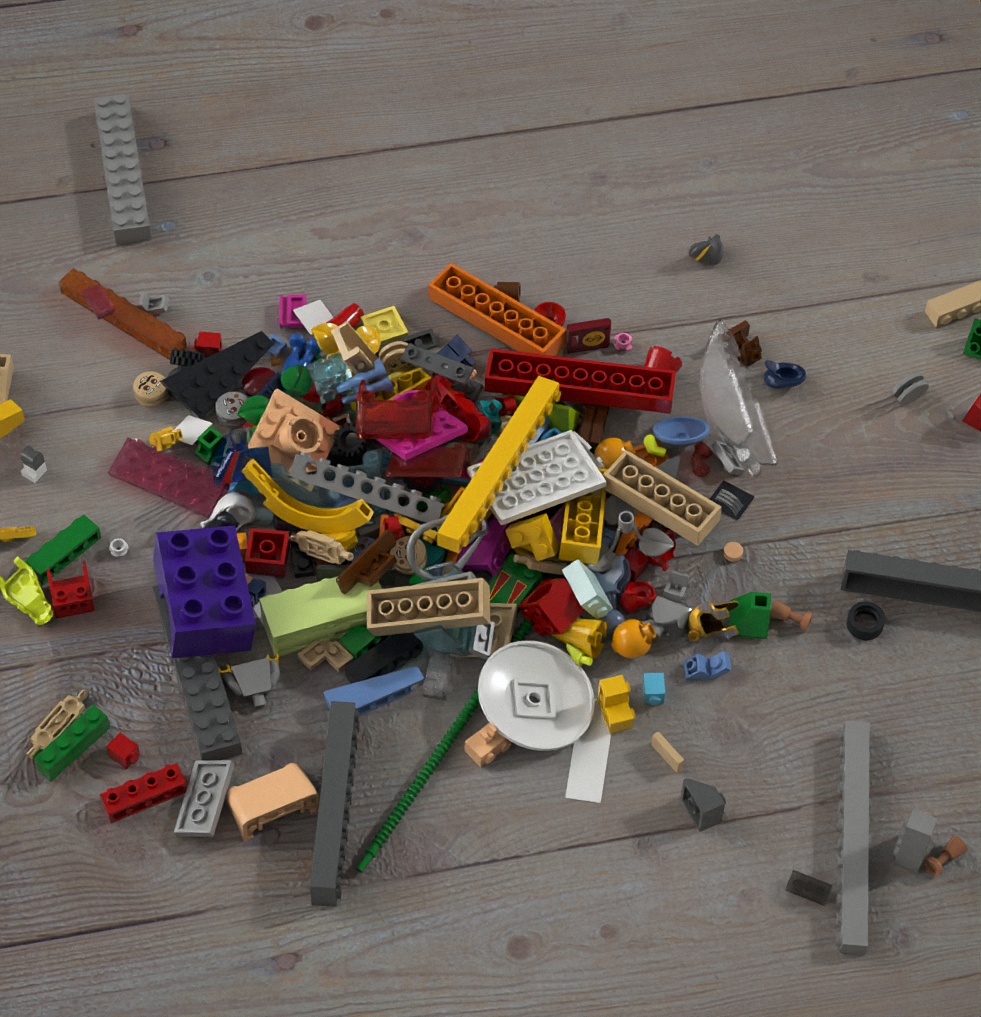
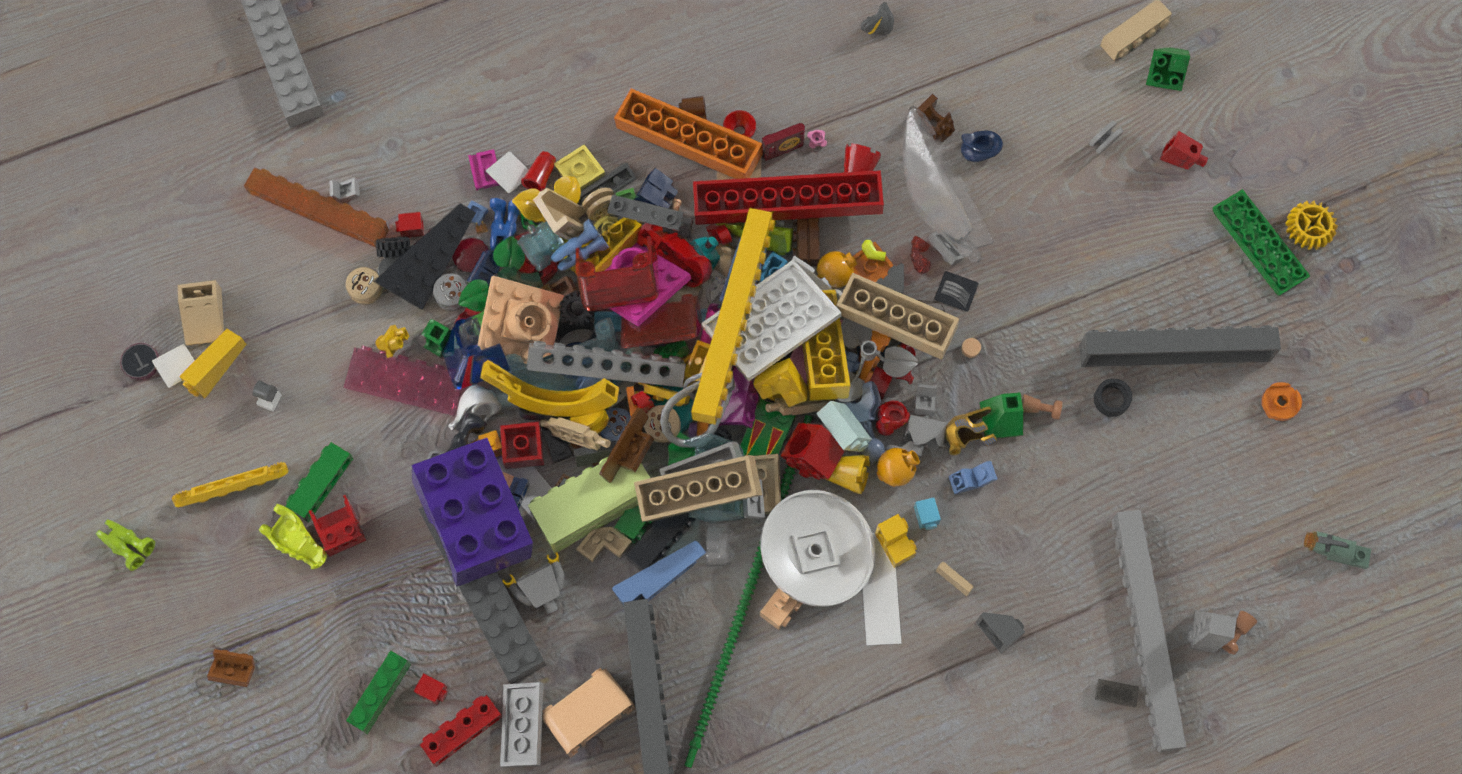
camera: 10 degrees left, 15 degrees up
(57, 721) = (350, 691): tan piece -> none
(98, 301) = (289, 201): clear pink tile -> none
(118, 543) = (373, 463): white plate -> none
(192, 428) = (415, 322): white sticker -> none
(578, 656) = (848, 495): neon yellow bar -> none
(681, 431) = (895, 228): medium blue dish -> none

